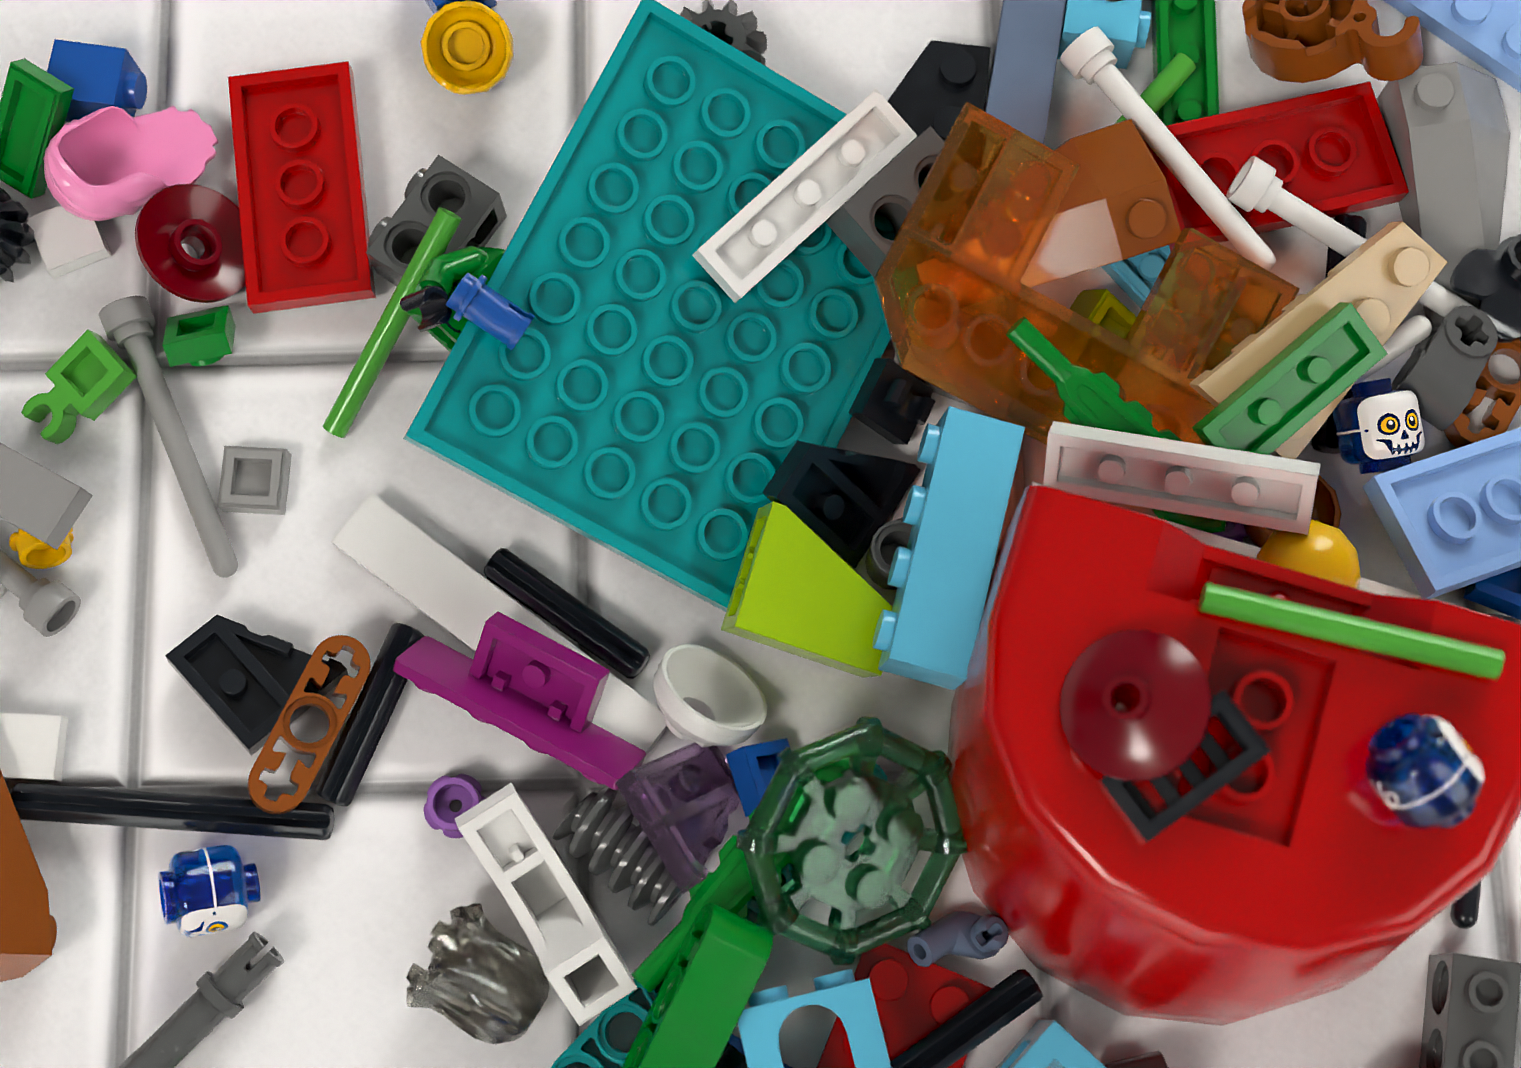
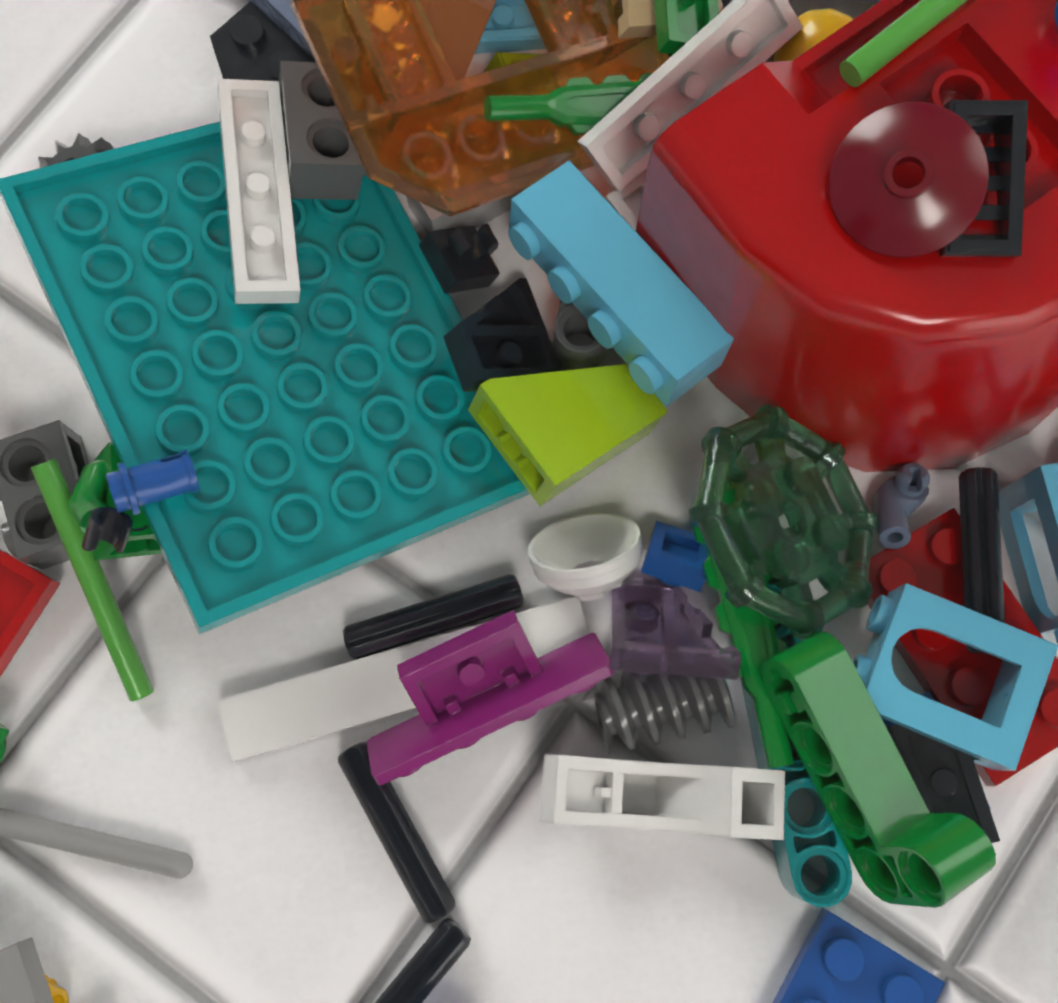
camera: 55 degrees left, 0 degrees up
(245, 677) = (293, 911): black wing -> none
(254, 480) = (129, 789): light grey tile -> none
(316, 673) = (405, 926): dark orange beam -> none
(442, 793) = (503, 820): medium lavender plate -> none
(479, 978) = (679, 896): clear smoke piece -> none

